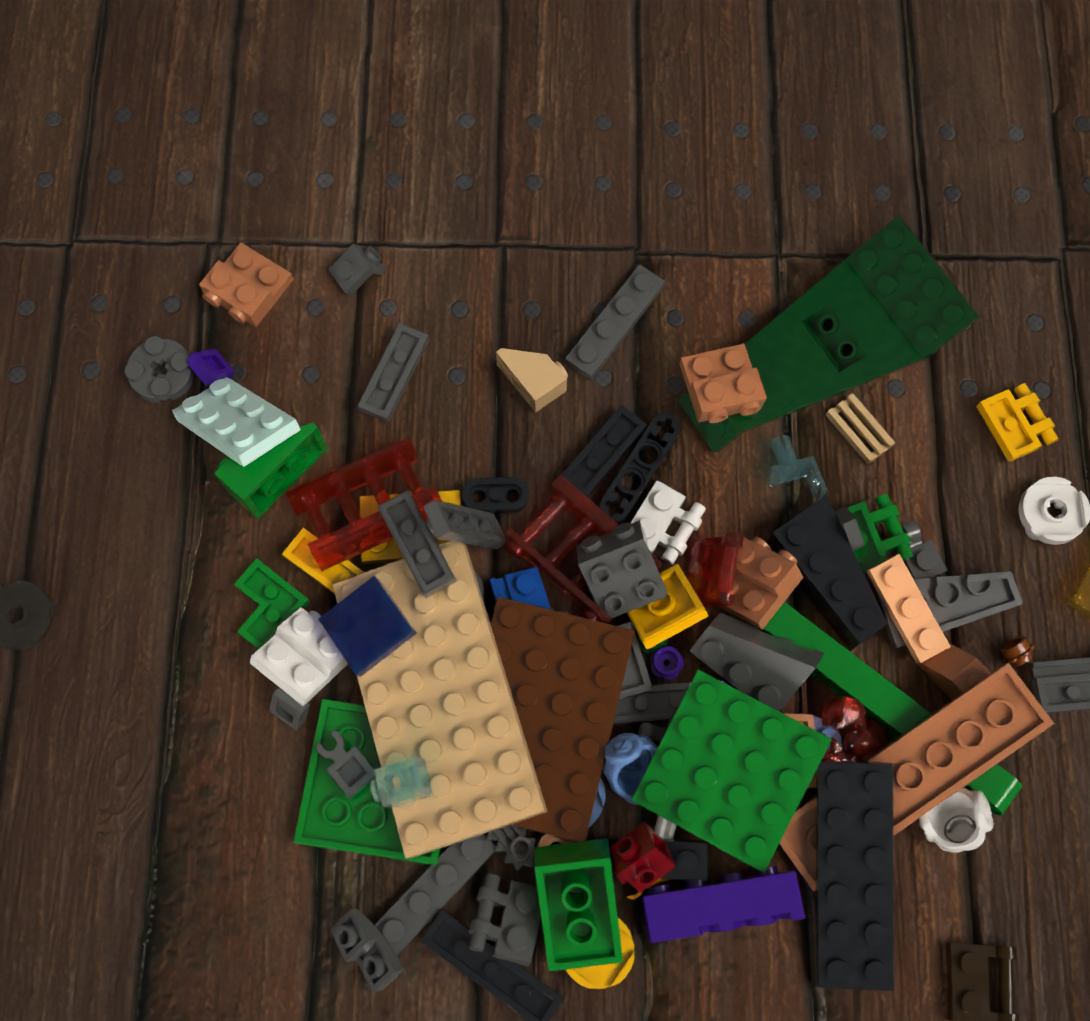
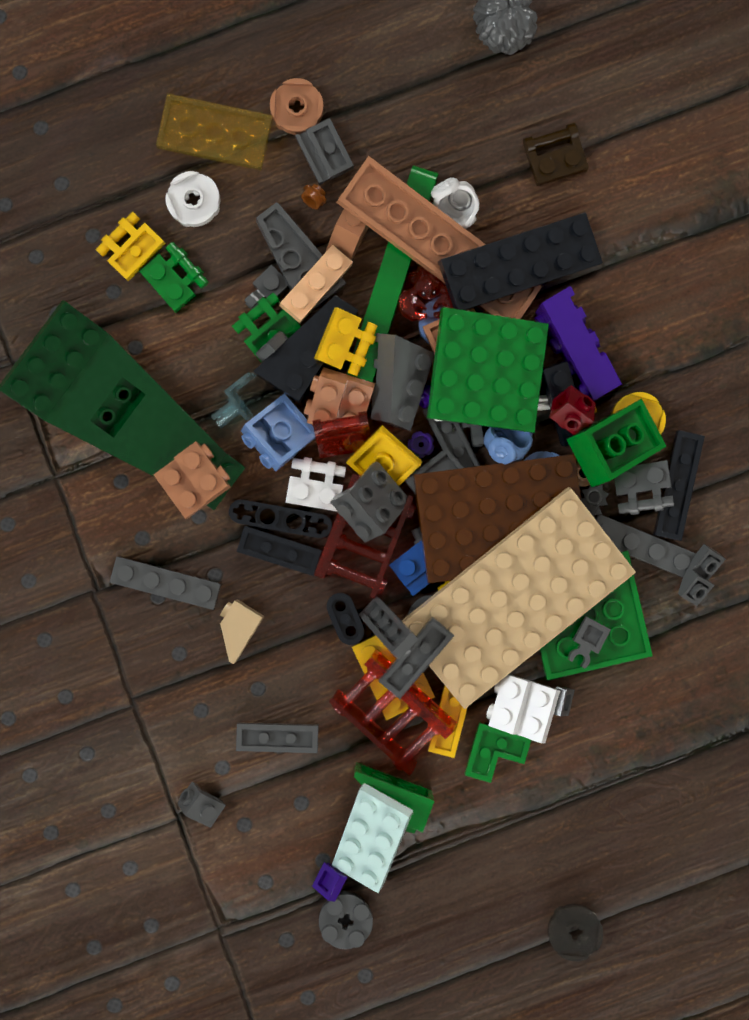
camera: 115 degrees left, 15 degrees up
(245, 285) = (248, 887): nougat plate -> none
(367, 626) = (488, 668): clear blue plate -> none
(413, 785) = (585, 588): clear light blue brick -> none
(742, 499) = (278, 433): none -> medium blue plate
(833, 604) = (338, 340): none -> yellow plate
(870, 422) = (173, 357): tan tile -> none
(963, 447) = (166, 280): none -> green plate

